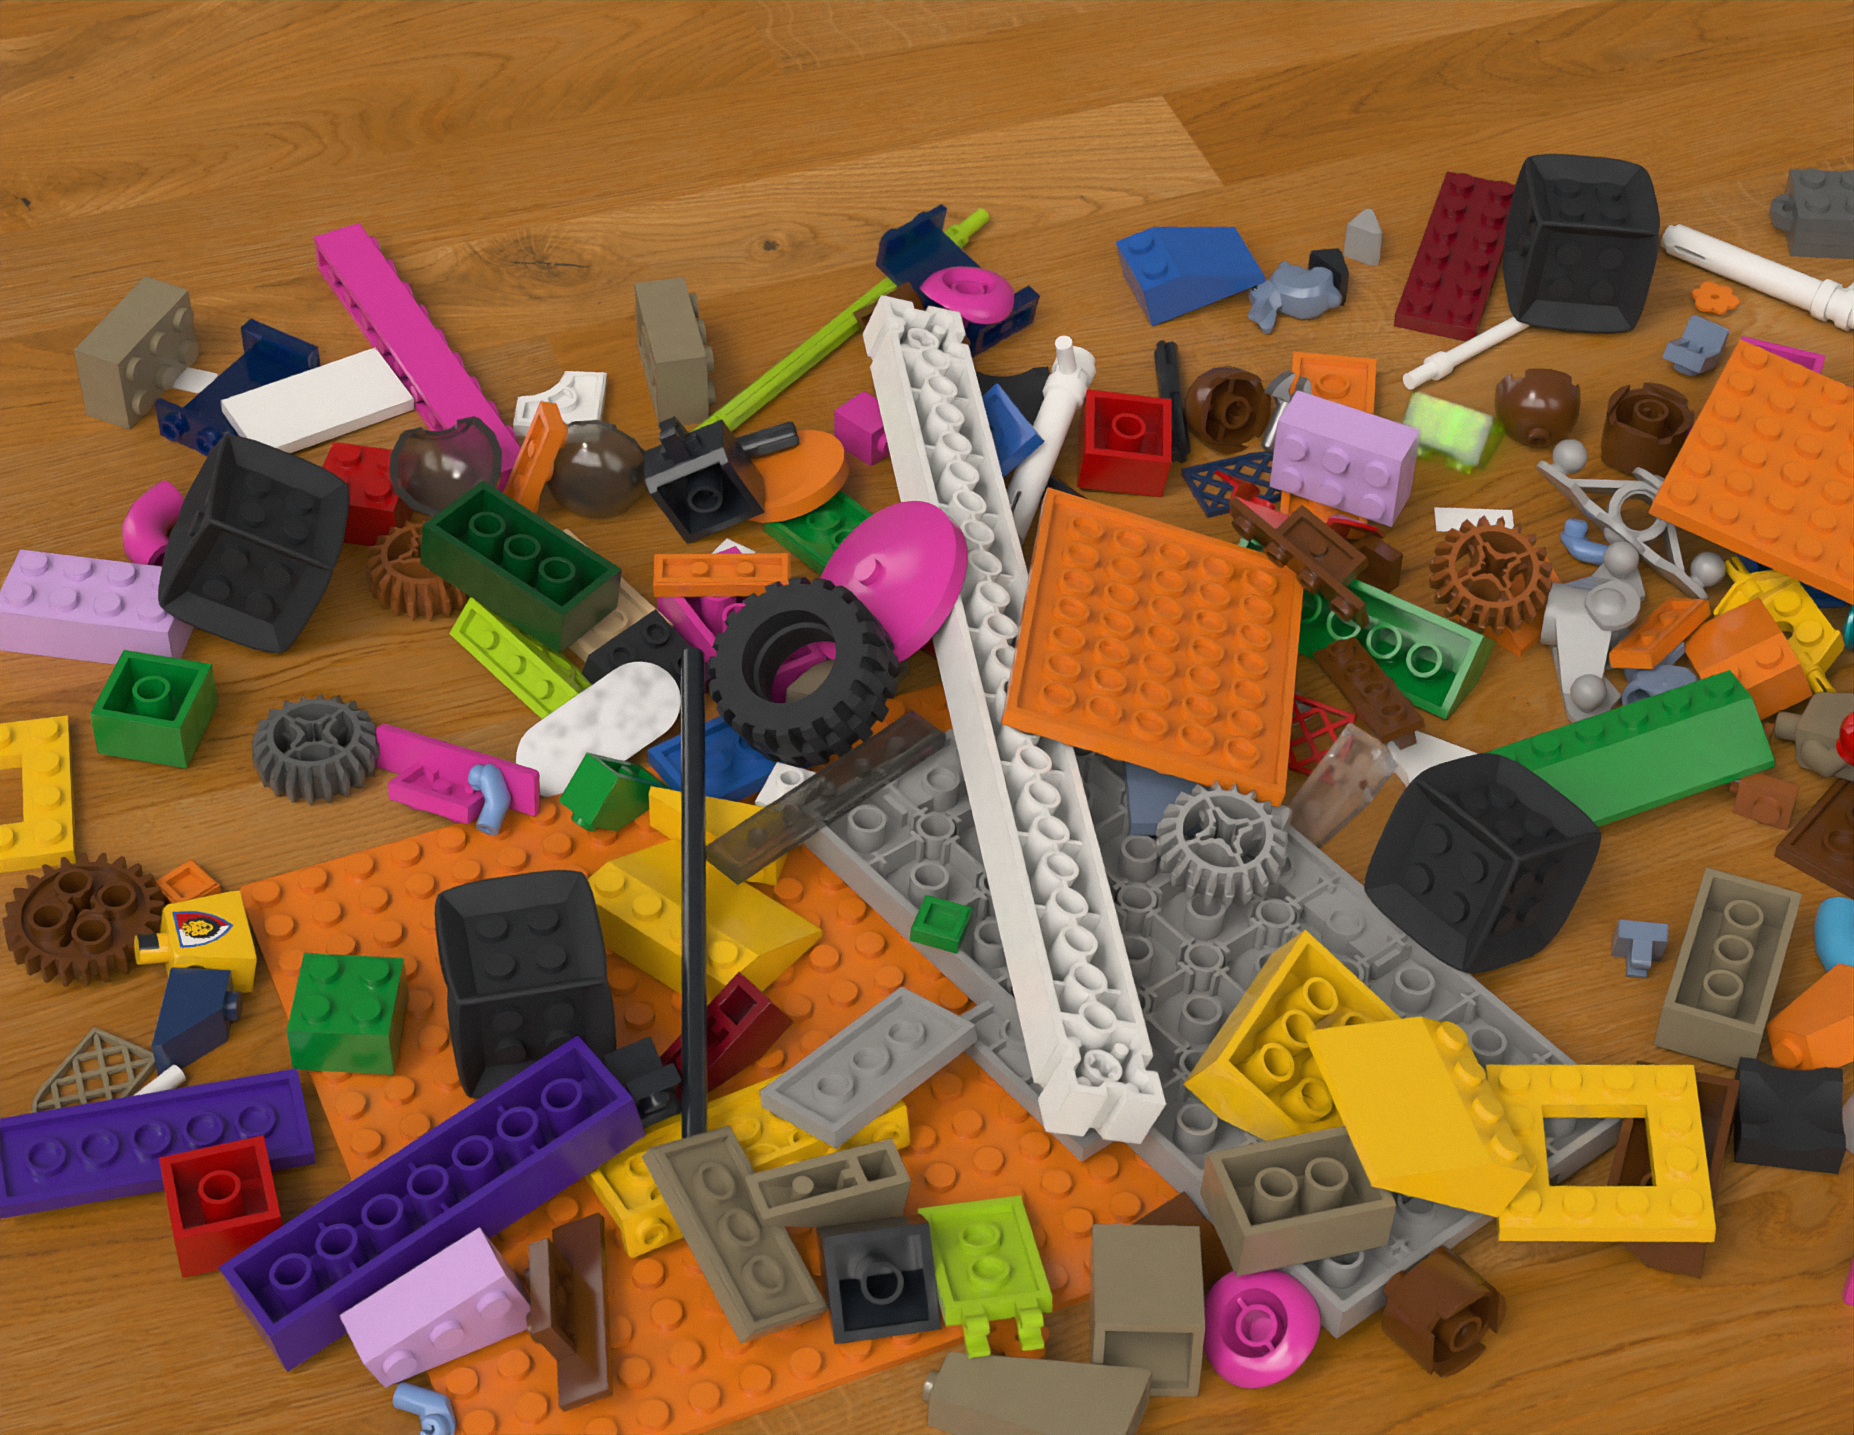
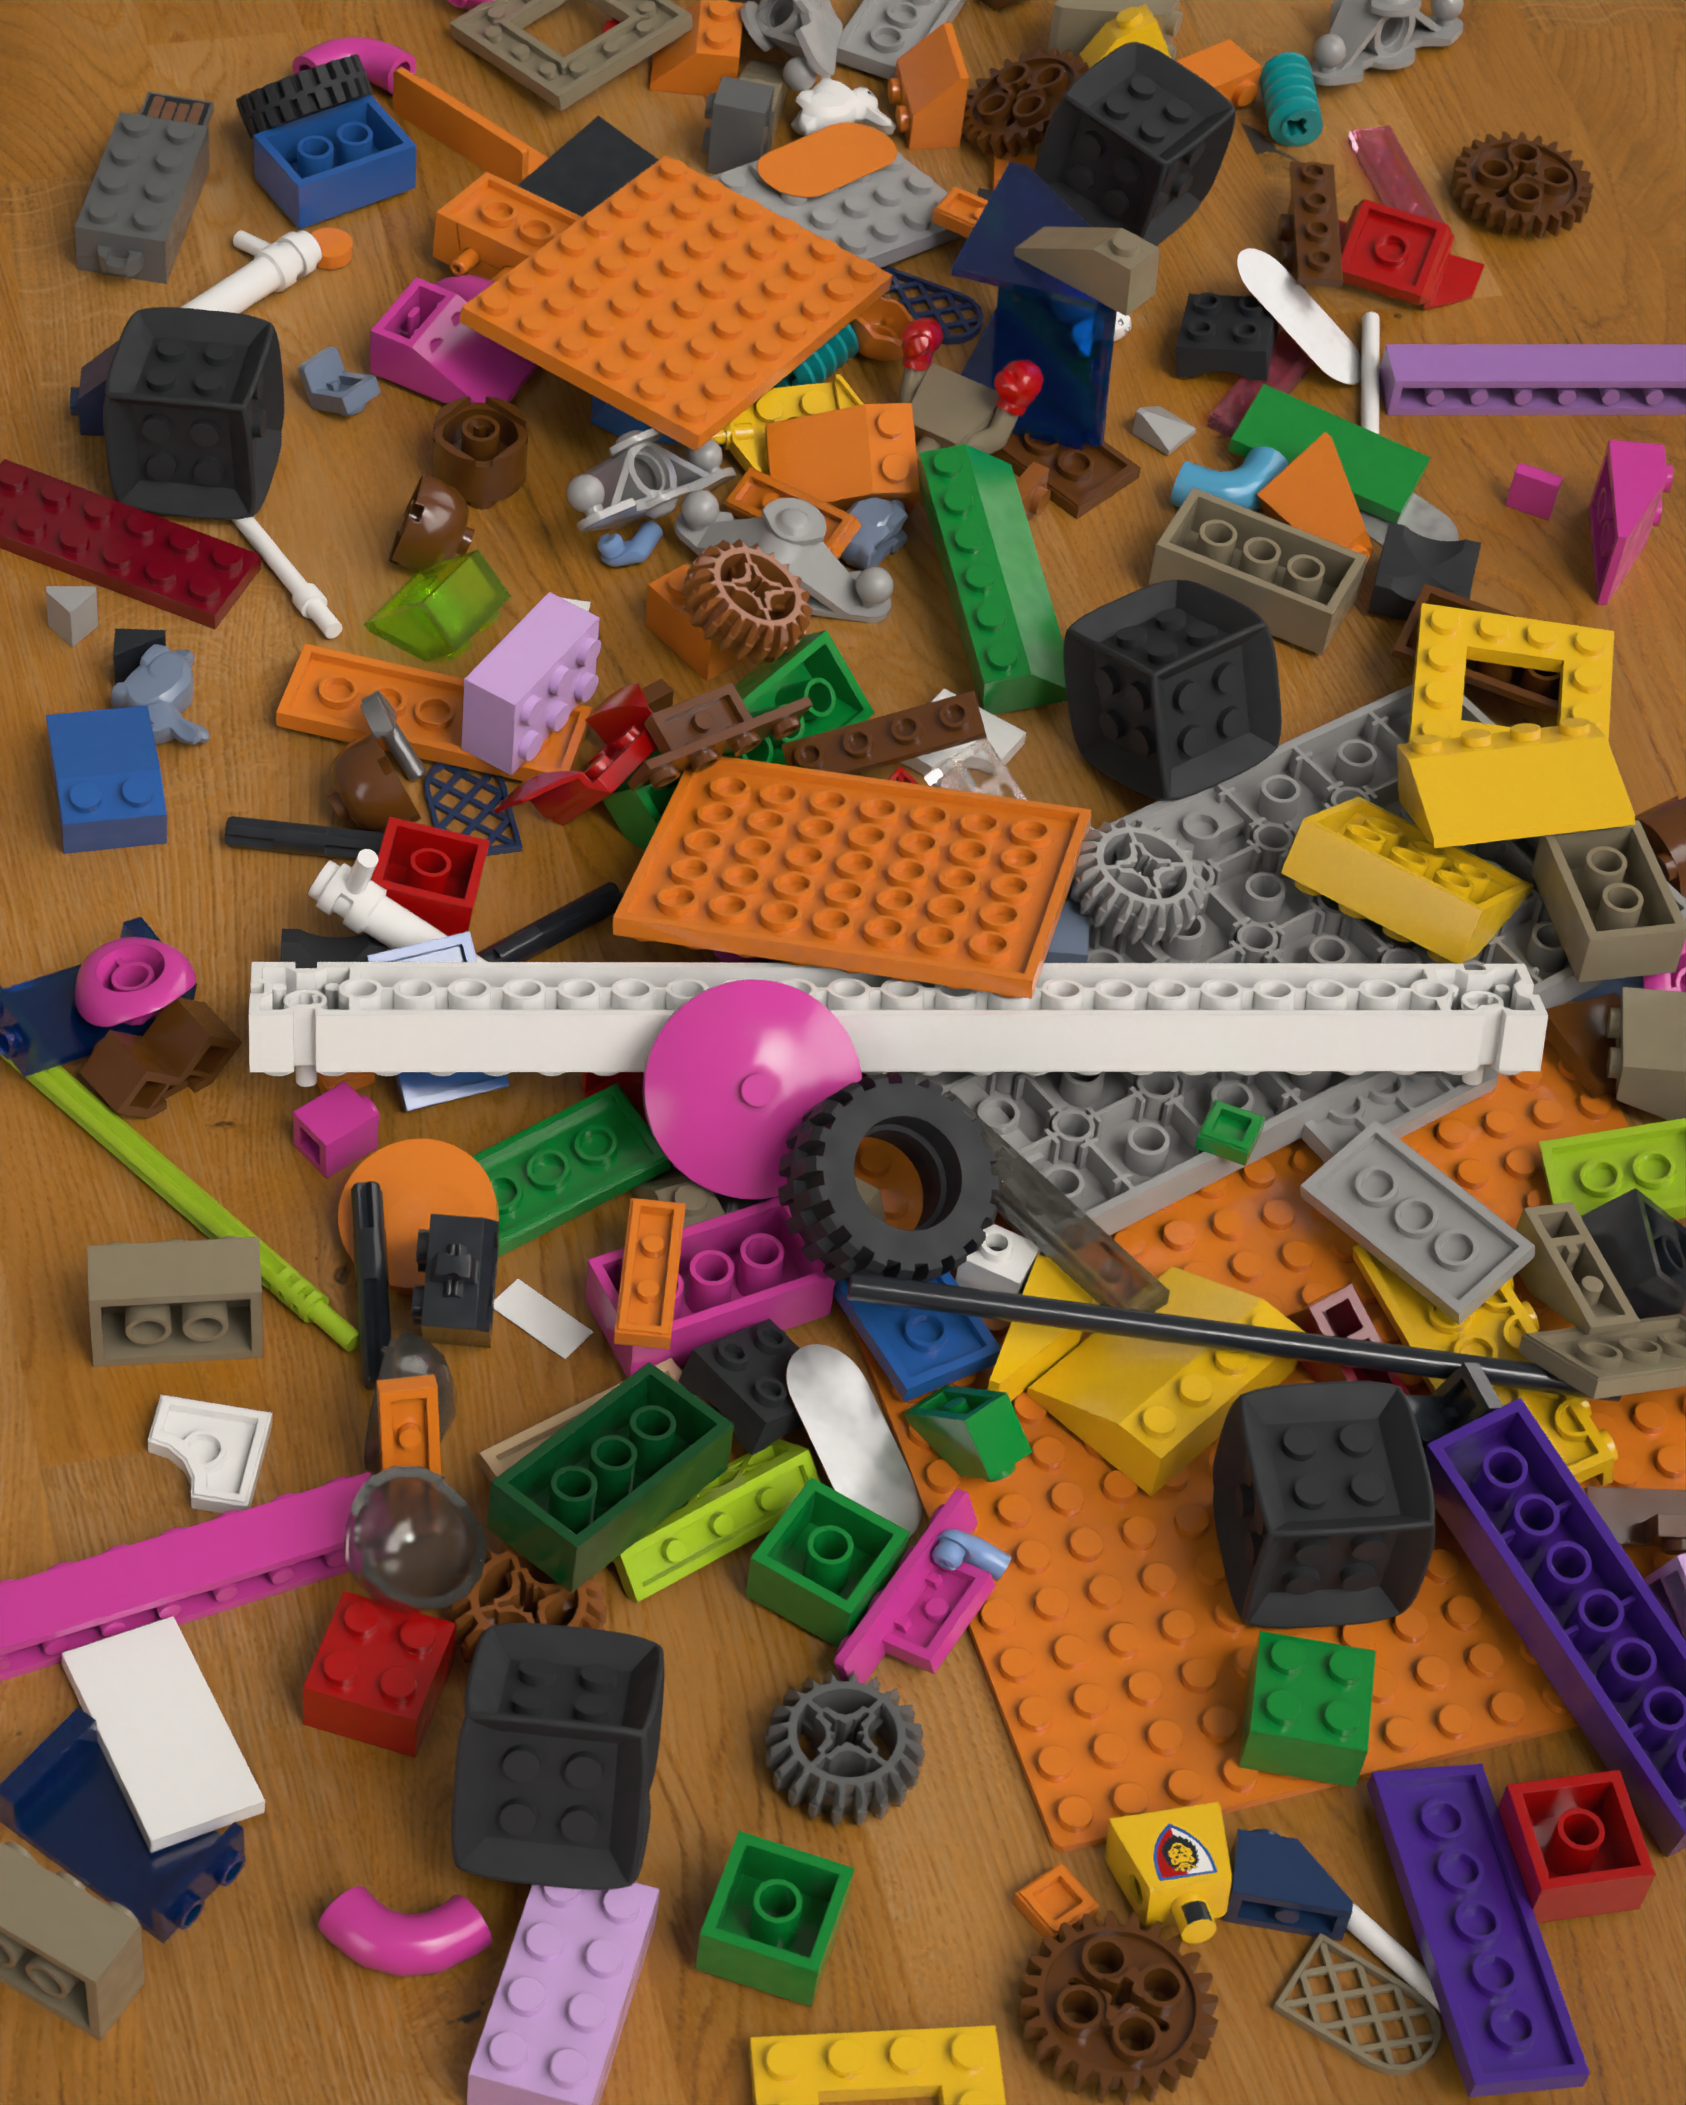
camera: 90 degrees left, 5 degrees up
(479, 709) = (825, 1562): none -> green brick

